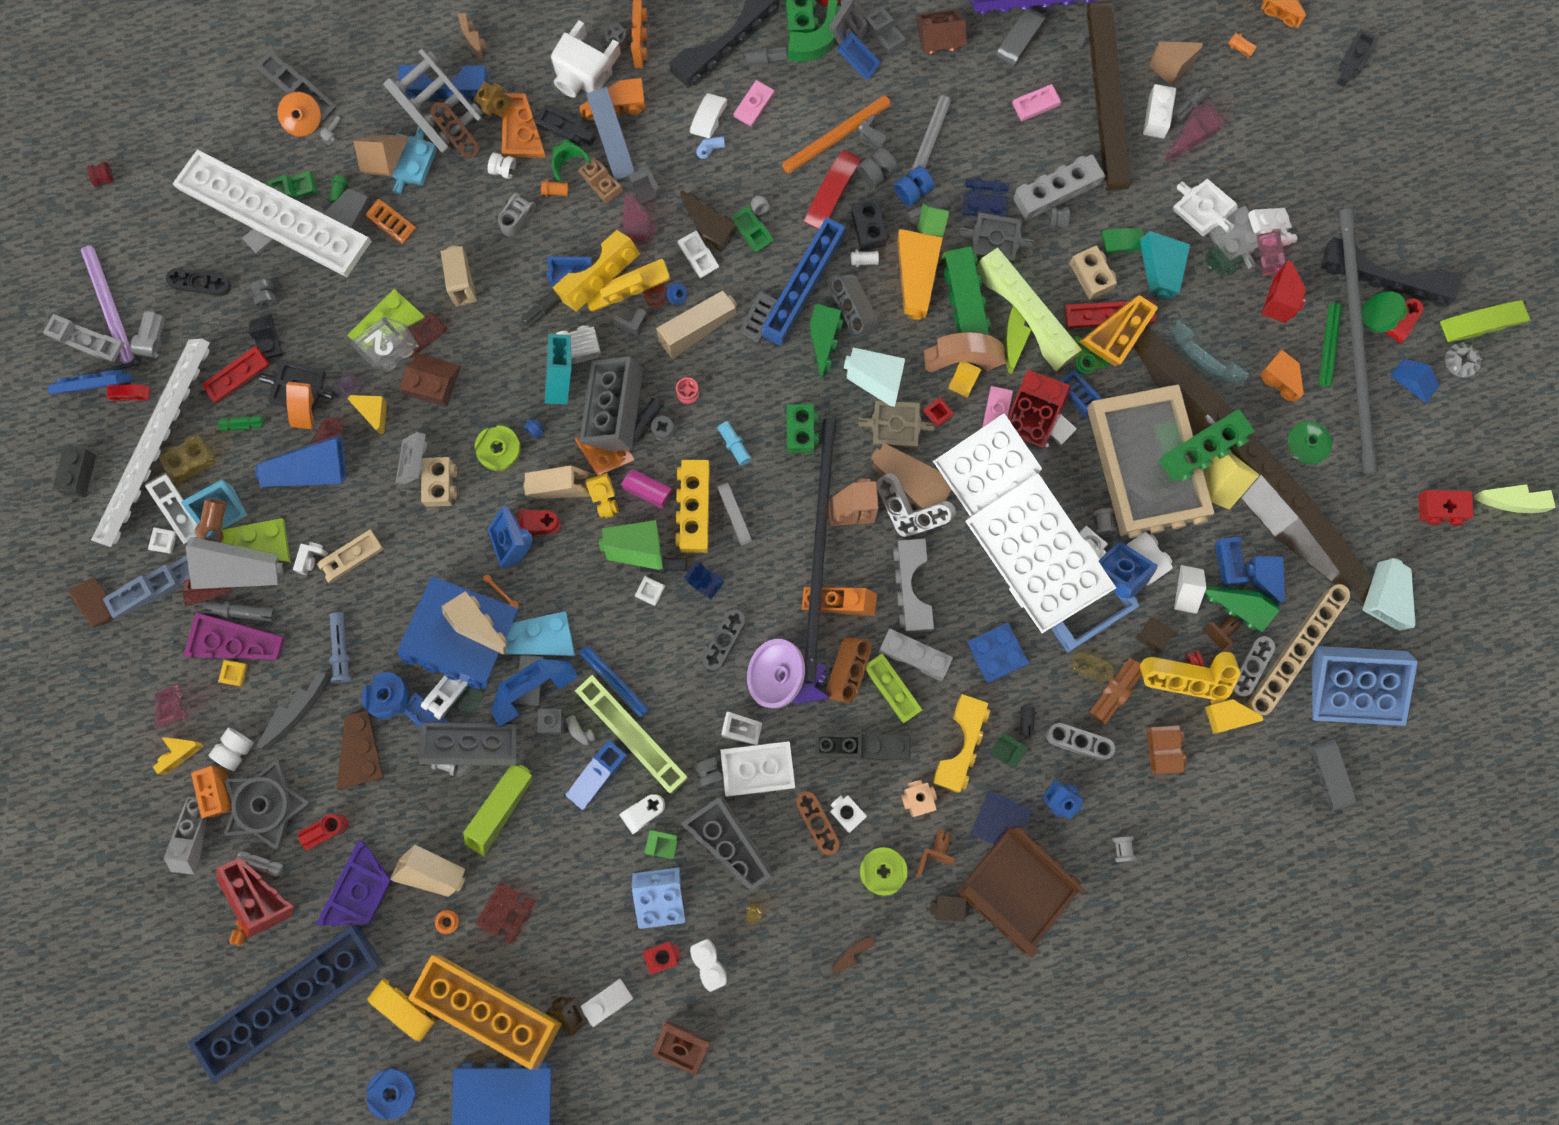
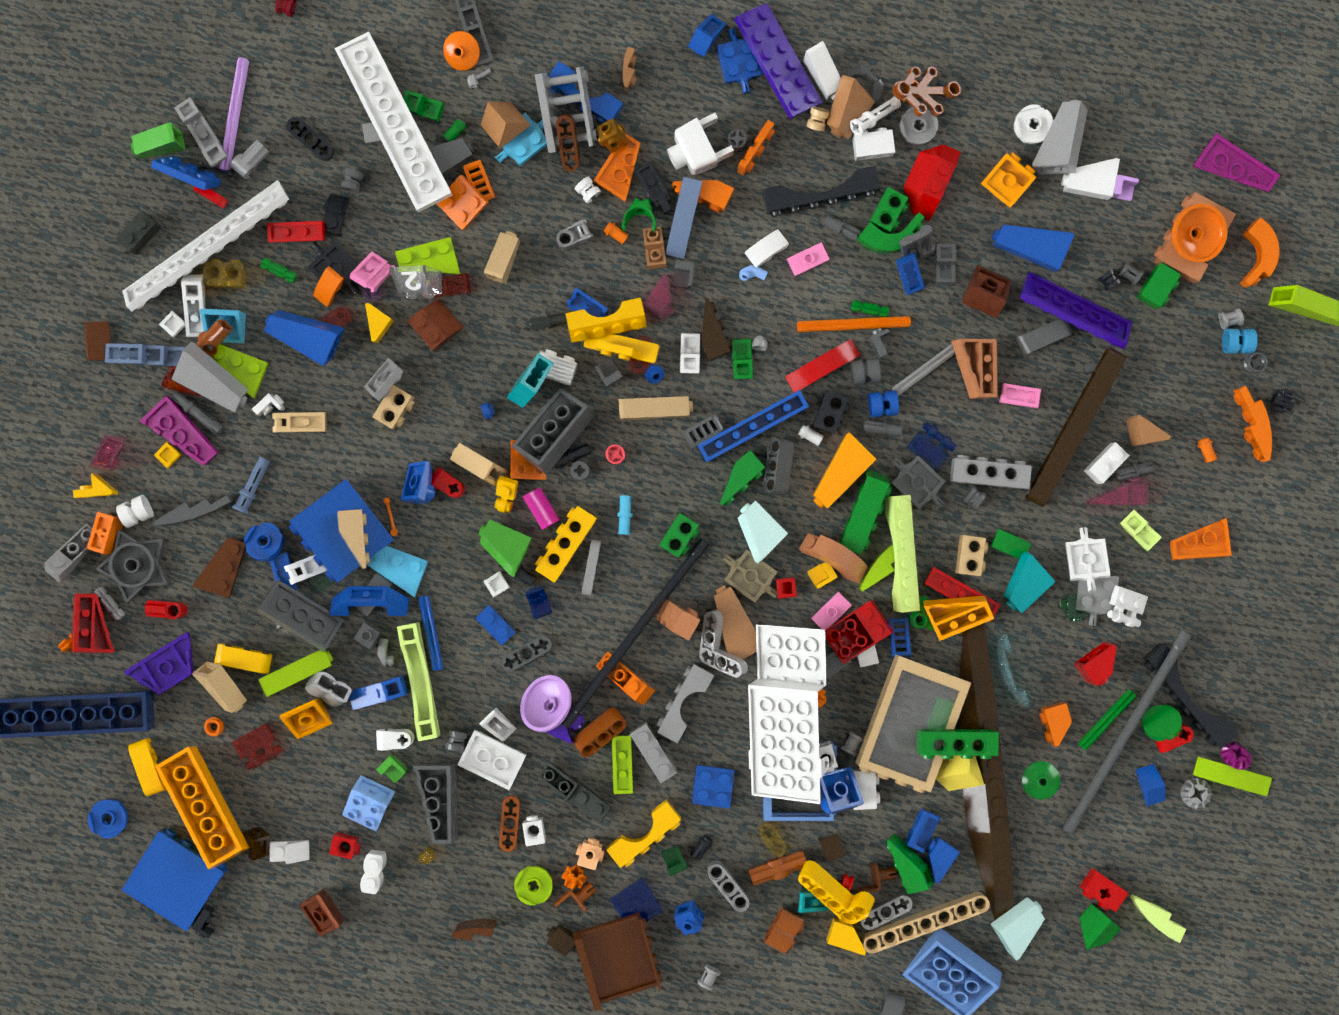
camera: 30 degrees right, 10 degrees up
(42, 370) = (158, 141): none -> bright green slope
(335, 365) = (371, 272): none -> bright pink plate
(387, 250) = (464, 204): none -> orange plate
(435, 828) = (243, 659): none -> yellow beam
(495, 436) = (455, 398): lime plate -> none
(539, 849) = (307, 718): none -> light orange slope
(542, 801) = (331, 691): none -> light grey brick
(674, 632) = (495, 625): none -> blue plate
(842, 111) = (870, 308): none -> green axle
(919, 834) = (574, 877): none -> orange gear
(932, 221) = (877, 442): bright green panel -> none
(979, 97) = (978, 366): none -> nougat wedge
(1173, 702) = (810, 903): none -> teal slope
(1190, 589) = (880, 829): white slope -> none
(1230, 153) = (1140, 530): none -> yellowish green slope
(1270, 252) = (1109, 626): clear pink slope -> none
(1302, 126) = (1206, 542): none -> orange wing
(1356, 56) = (1287, 514): black hinge -> none
(1466, 545) = (1097, 927): none -> green slope
(1474, 299) = (1229, 752): none -> magenta gear

